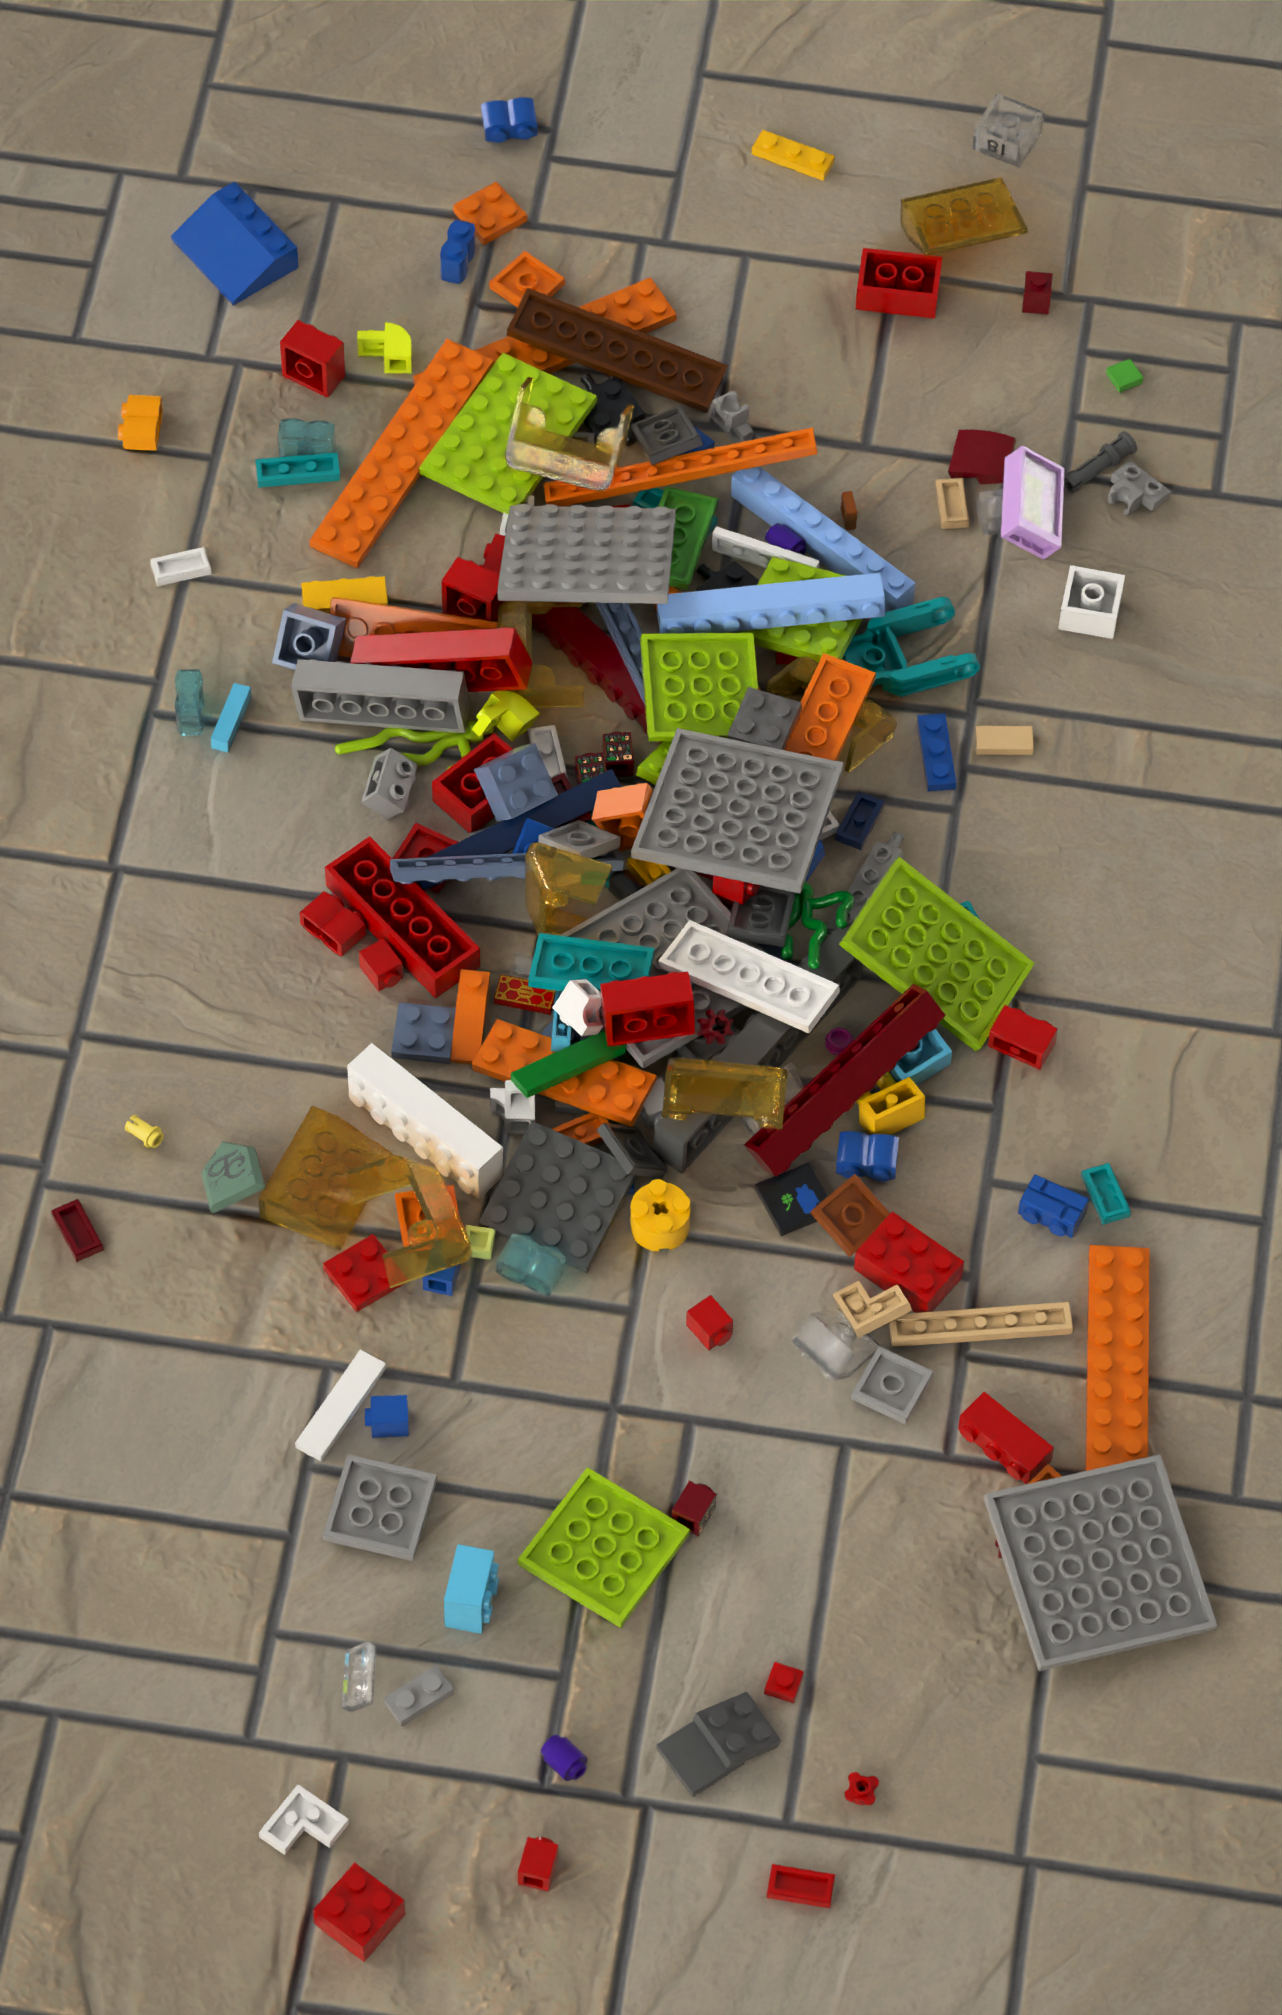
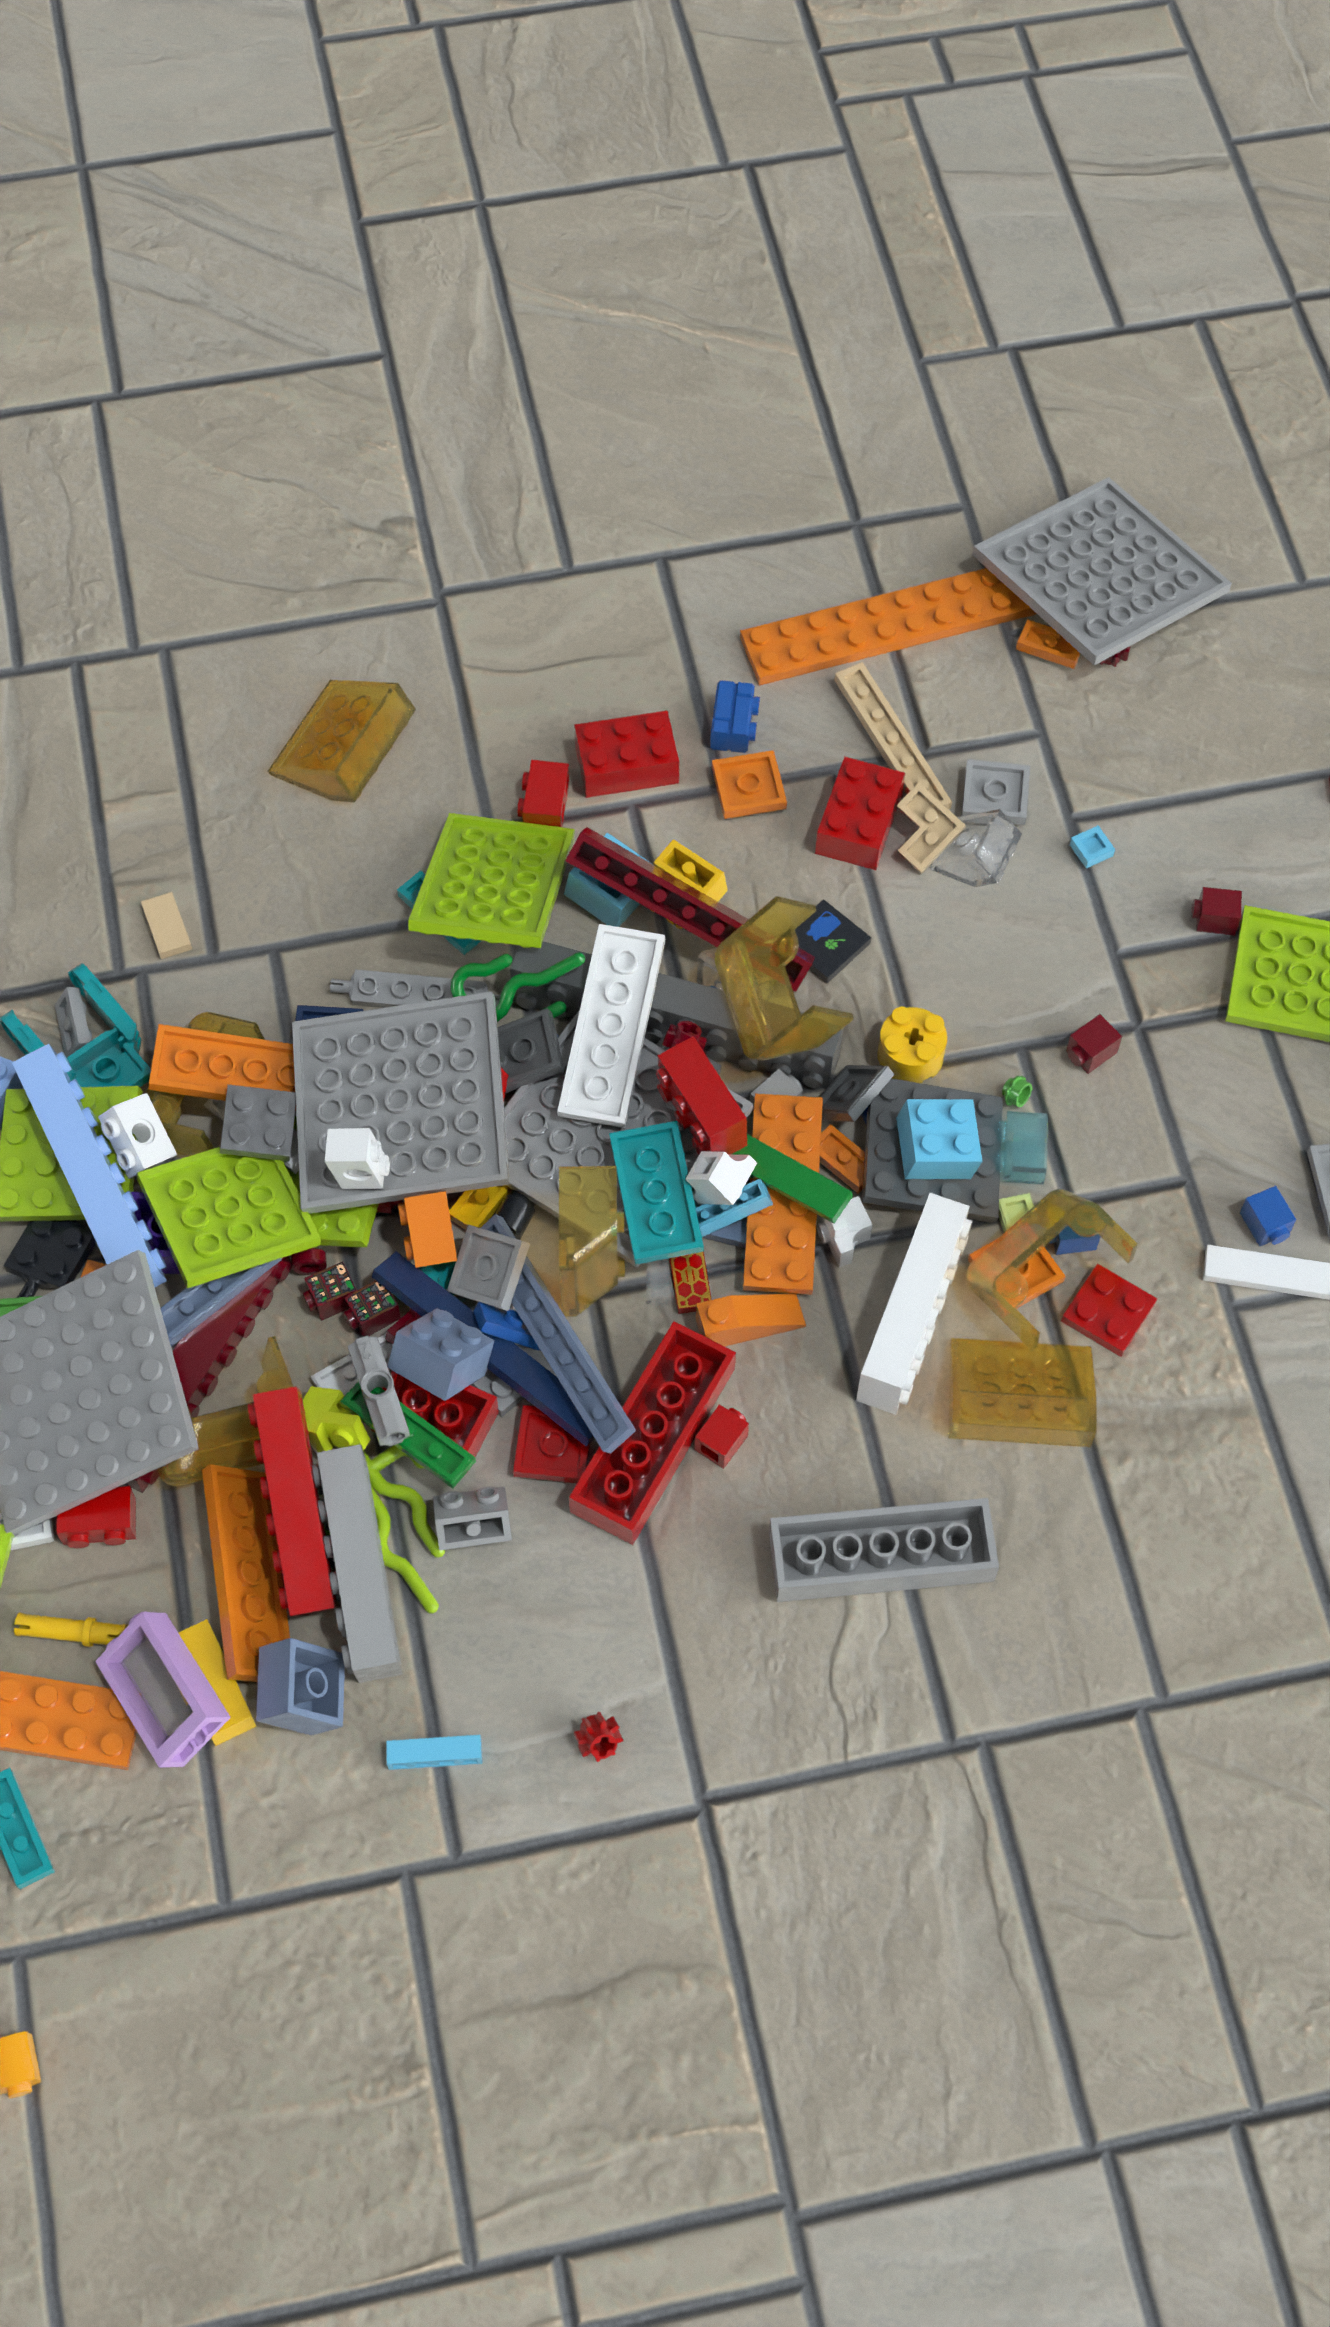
camera: 110 degrees left, 5 degrees up
(77, 1230) = (1207, 1631): dark red tile -> none
(148, 1134) = (1052, 1607): light yellow pin -> none
(180, 566) = (216, 1918): white tile -> none
(189, 702) = (445, 1803): clear light blue brick -> none
(190, 811) = (598, 1736): none -> red gear
(231, 1175) = (1068, 1483): sand green tile -> none
(238, 1030) = (883, 1549): none -> light grey brick
(333, 923) = (686, 1510): red brick -> none
(348, 562) = (162, 1689): none -> lavender window
(418, 542) = (84, 1631): none -> yellow pin
(423, 1033) = (784, 1363): sand blue plate -> none
(467, 750) = (425, 1443): none -> green tile
(470, 591) = (160, 1520): red brick -> none
(512, 728) = (383, 1408): none -> light grey piece
(552, 1181) = (939, 1139): none -> medium azure brick
(587, 1282) = (1016, 1091): none -> bright green plate
(604, 1354) = (1093, 1044): none -> dark red brick
(648, 748) = (309, 1261): none -> dark red tile
(686, 750) = (356, 1158): none -> white brick
(710, 1323) = (1009, 963): red brick -> none
(803, 1438) = (1092, 846): none -> medium azure plate
(804, 642) = (140, 1118): none -> white brick
(850, 1214) = (827, 877): dark orange plate -> none
(867, 1155) = (748, 883): blue brick -> none
(917, 652) = (72, 1020): none -> light grey plate
(936, 752) = (205, 984): blue plate -> none
(976, 1195) = (749, 784): none -> orange plate
(1005, 1438) = (1007, 684): red brick -> none
(1042, 1109) = (626, 754): none -> red brick
(1105, 1193) = (695, 681): teal plate -> none
(1142, 908) = (344, 738): none -> clear yellow slope

